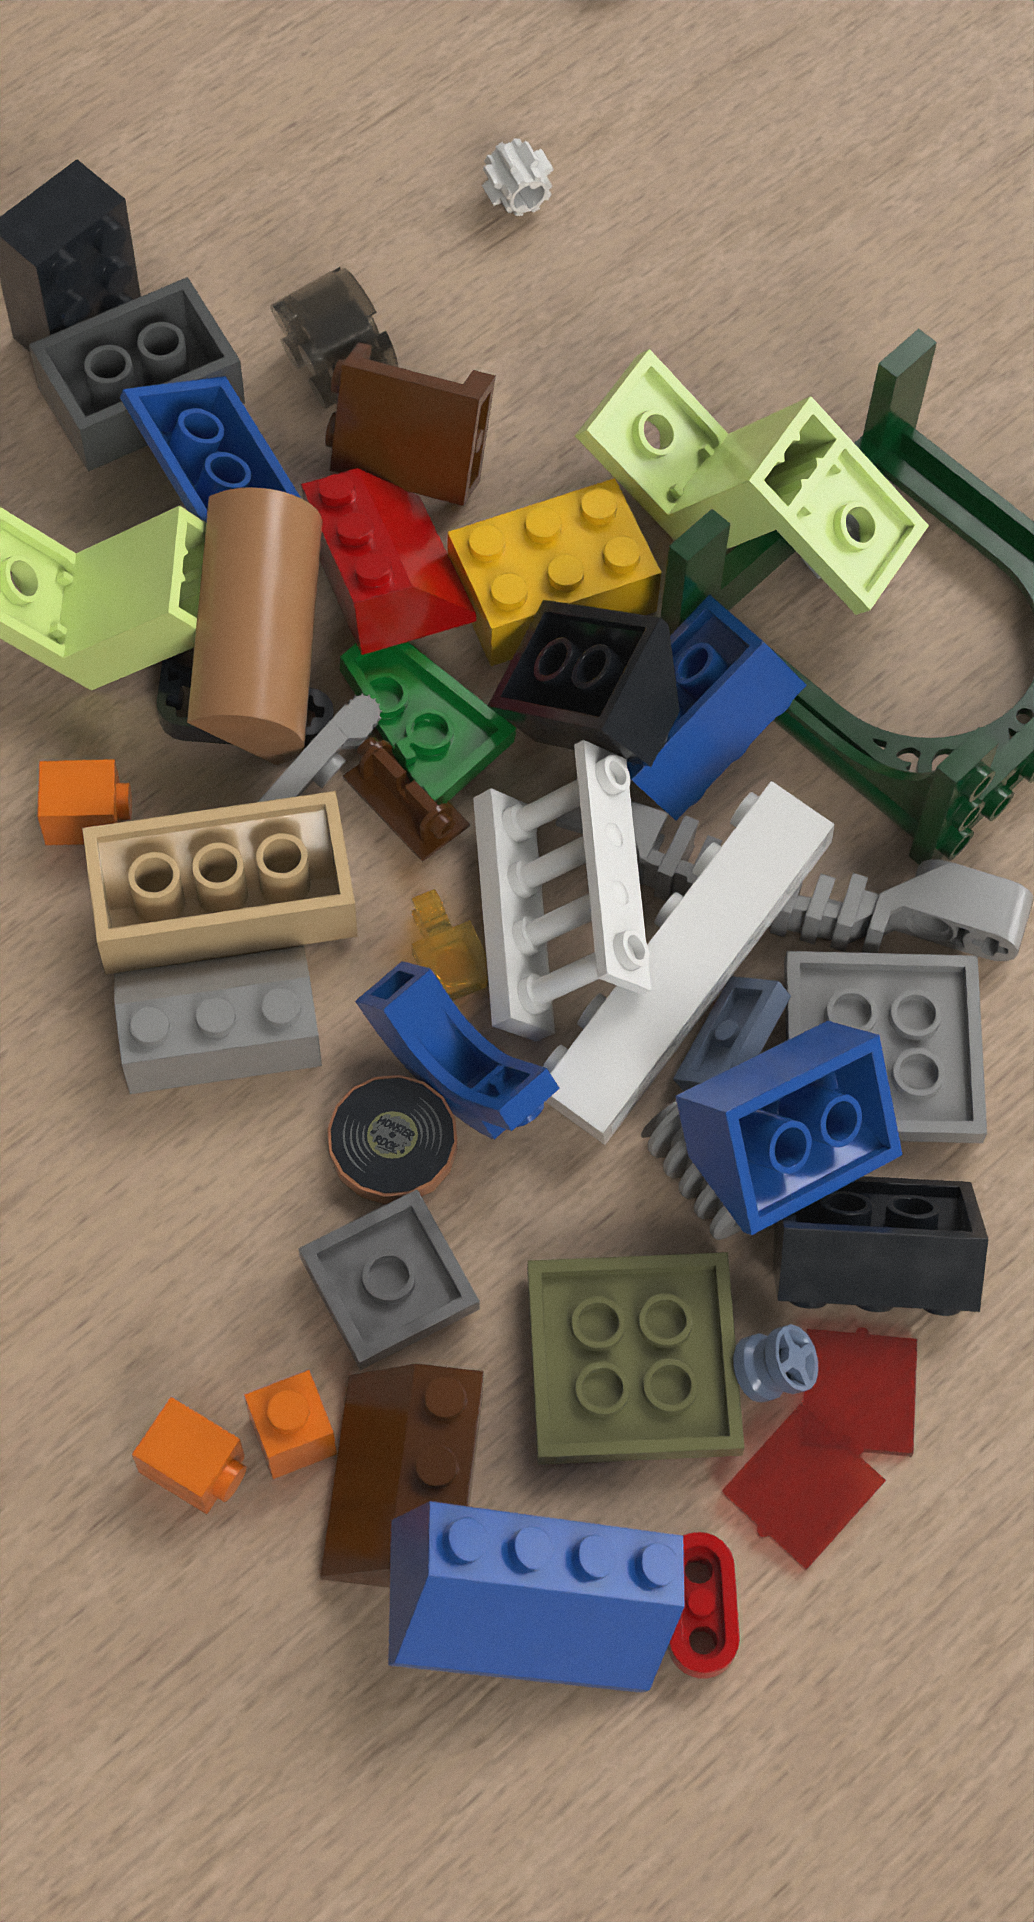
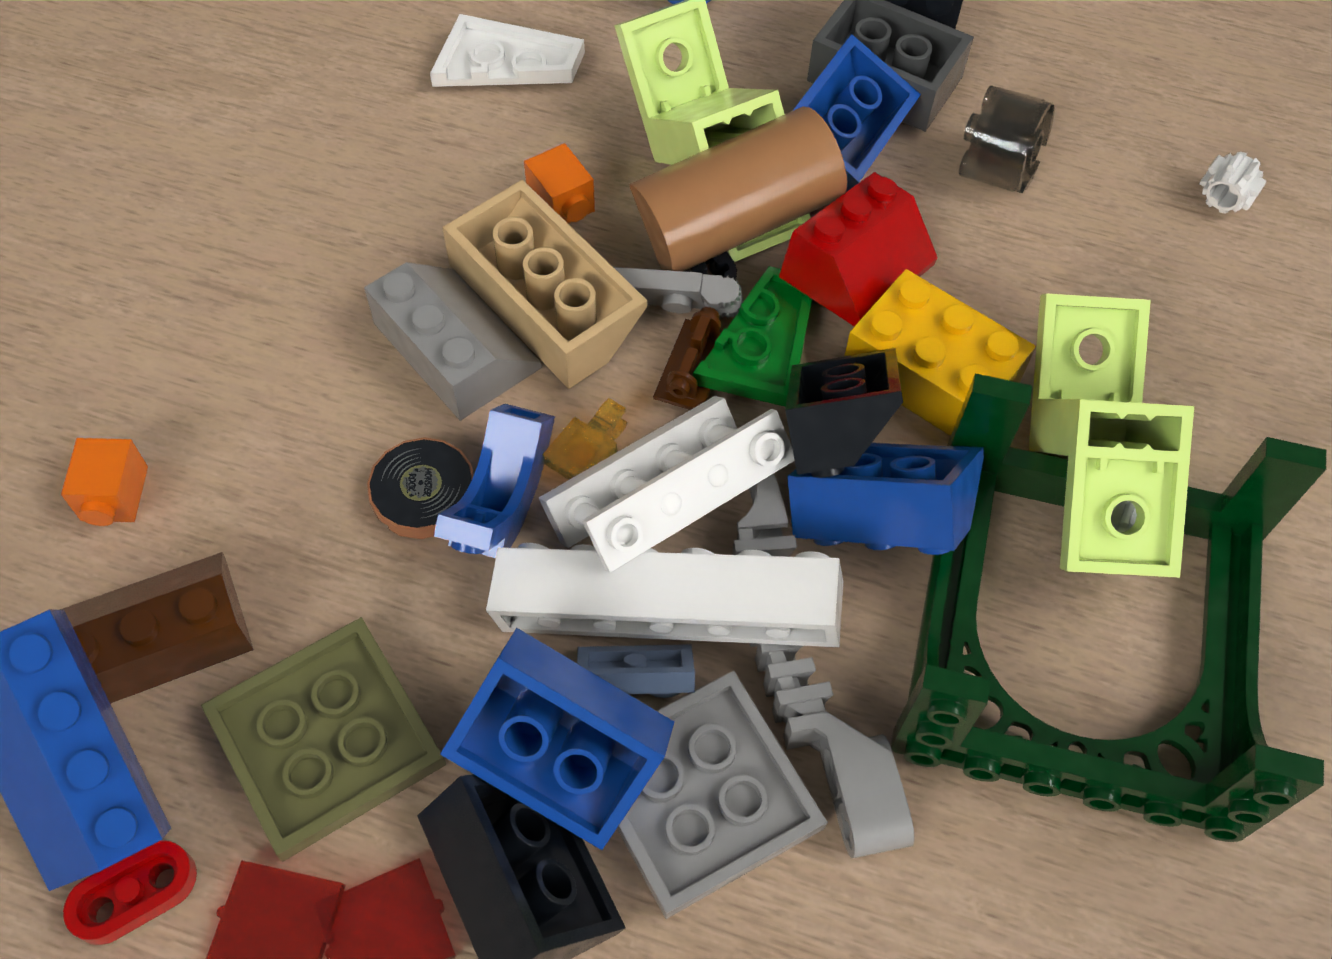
camera: 60 degrees right, 5 degrees down
(291, 1424) = (153, 527): orange brick -> none
(389, 1279) = (305, 537): flat silver plate -> none
(409, 426) = (973, 212): reddish brown panel -> none
(775, 1363) = (370, 857): sand blue wheel -> none

